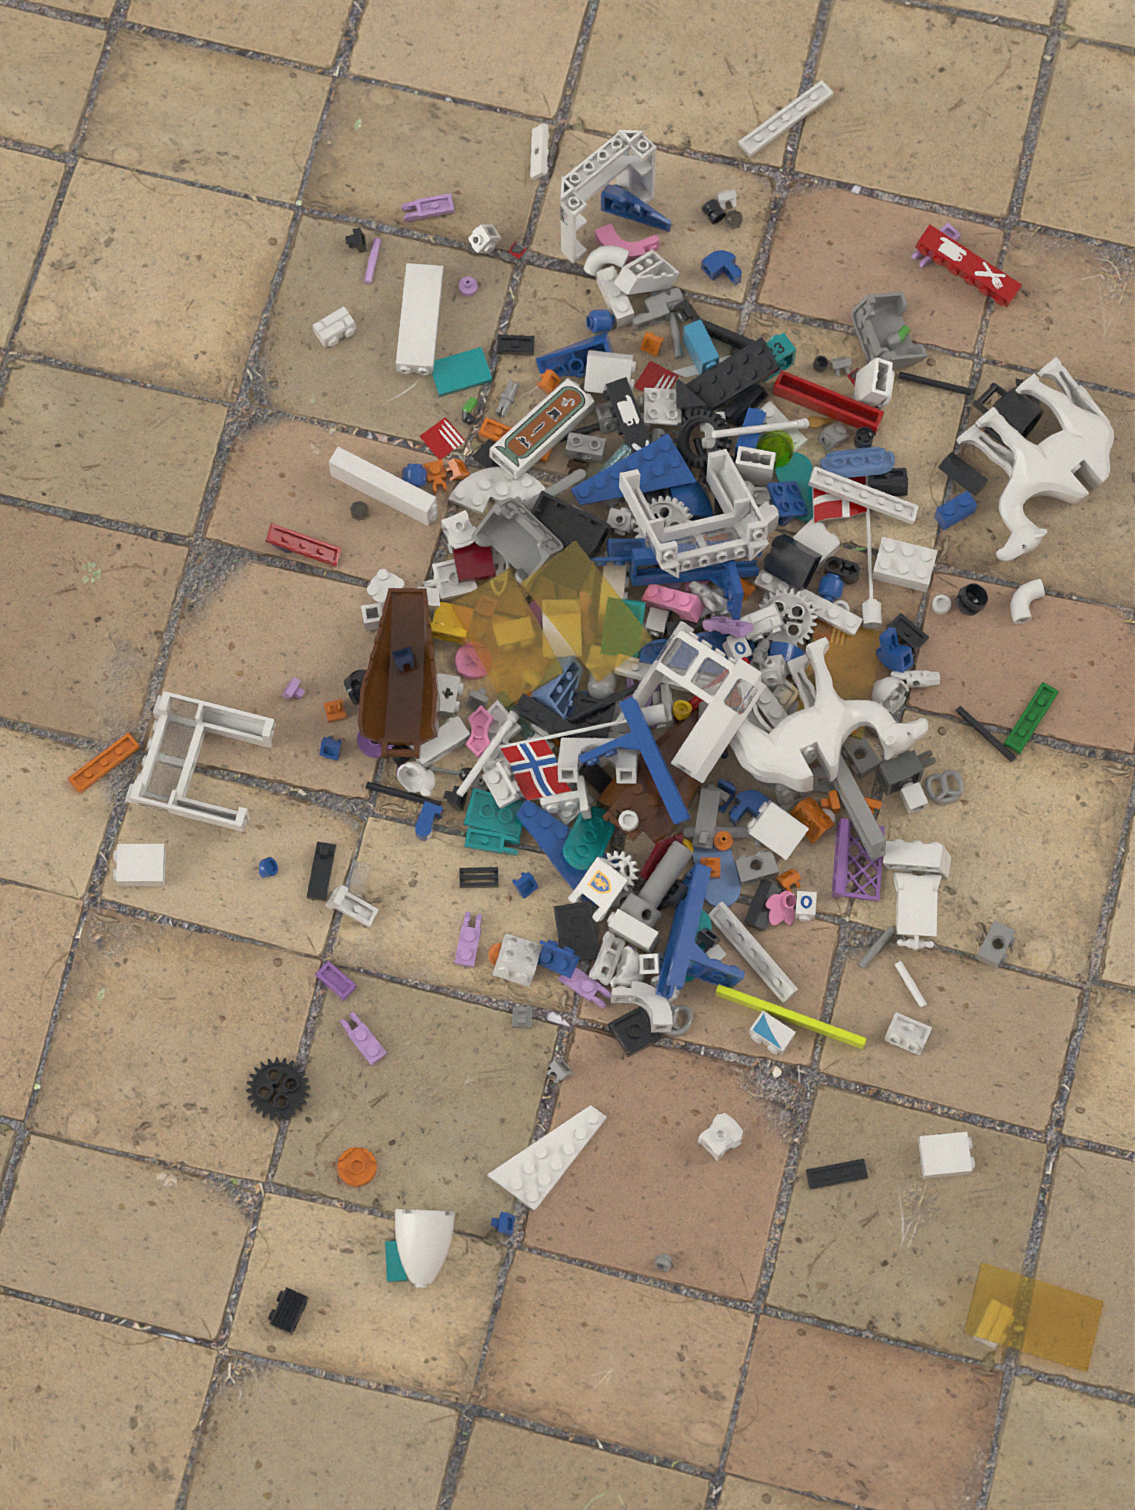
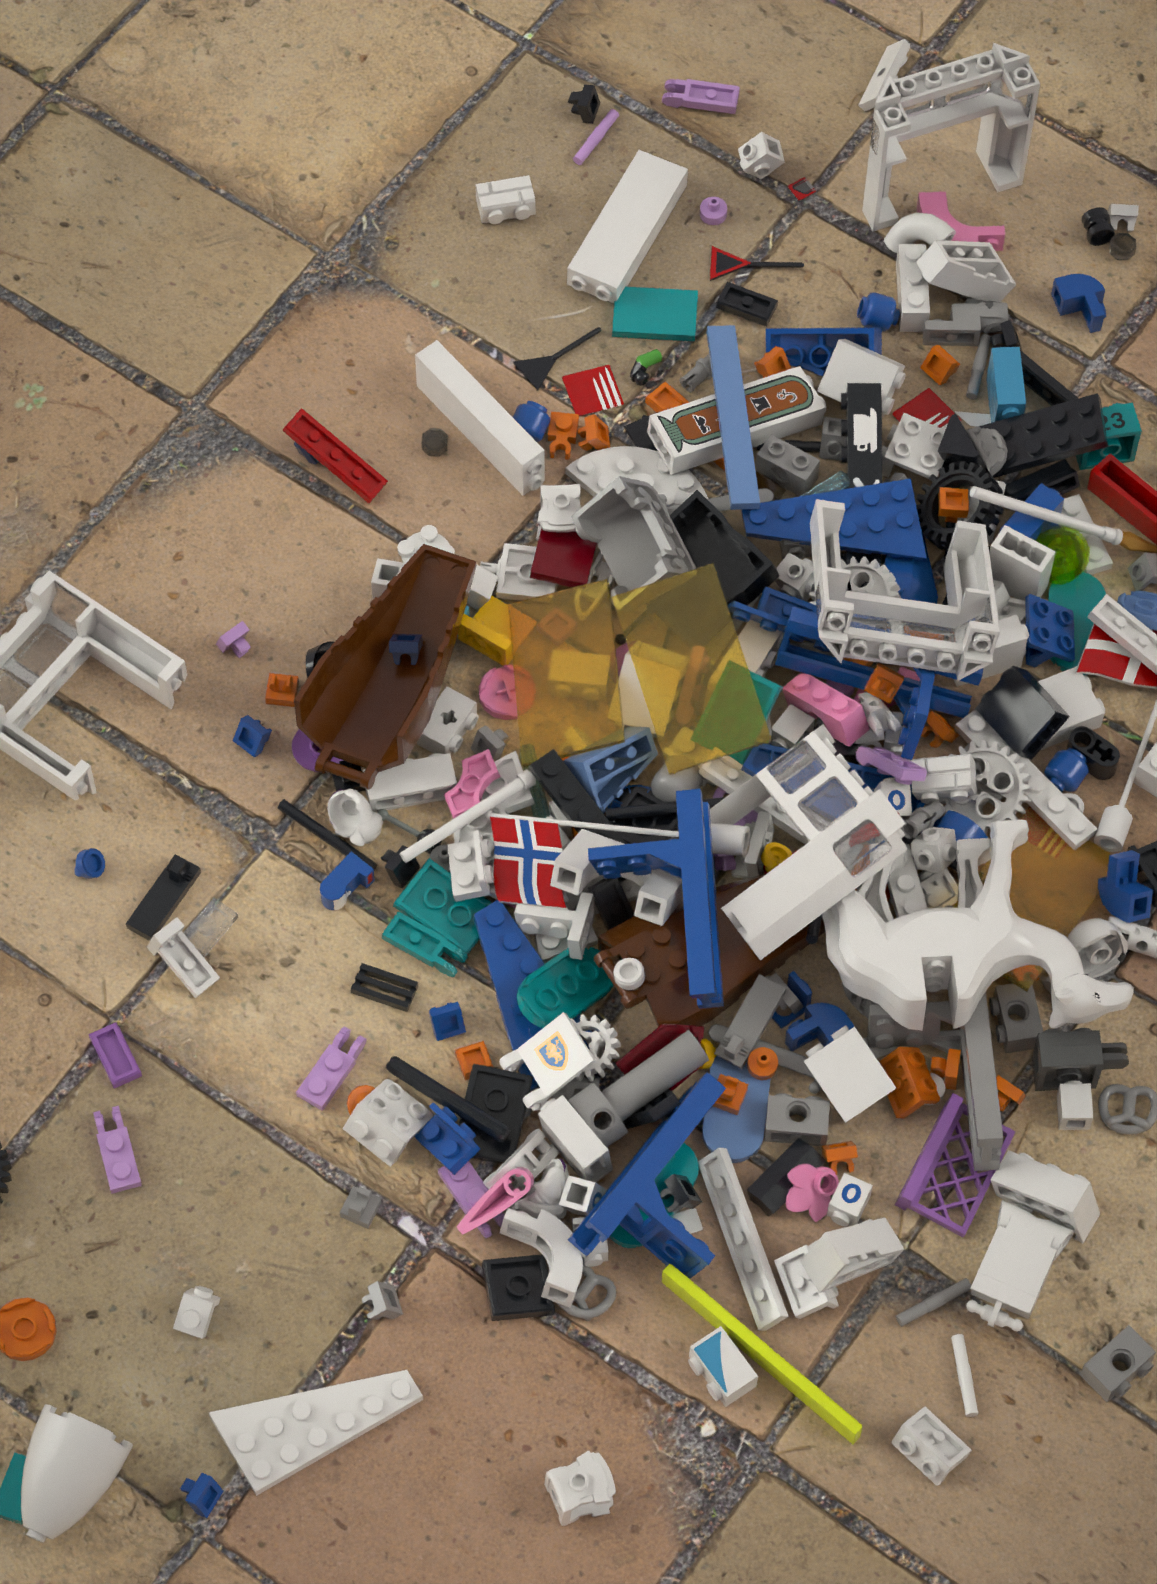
camera: 20 degrees right, 10 degrees down
(402, 436) = (538, 368): none -> black piece
(453, 1117) = (196, 1311): none -> white bracket
(490, 320) = (725, 263): none -> black piece
(542, 430) = (733, 418): none -> medium blue tile
(547, 933) = (448, 1098): none -> black axle
(549, 900) = (470, 1055): none -> orange tile
(604, 984) = (496, 1199): none -> bright pink piece
(626, 205) = (976, 178): blue wedge -> none
(698, 438) = (953, 503): none -> orange tile
(703, 575) = (884, 683): none -> orange tile
(707, 392) = (990, 447): none -> light grey tile
(799, 963) = (799, 1287): none -> white bracket
(820, 938) = (851, 1253): none -> white wedge

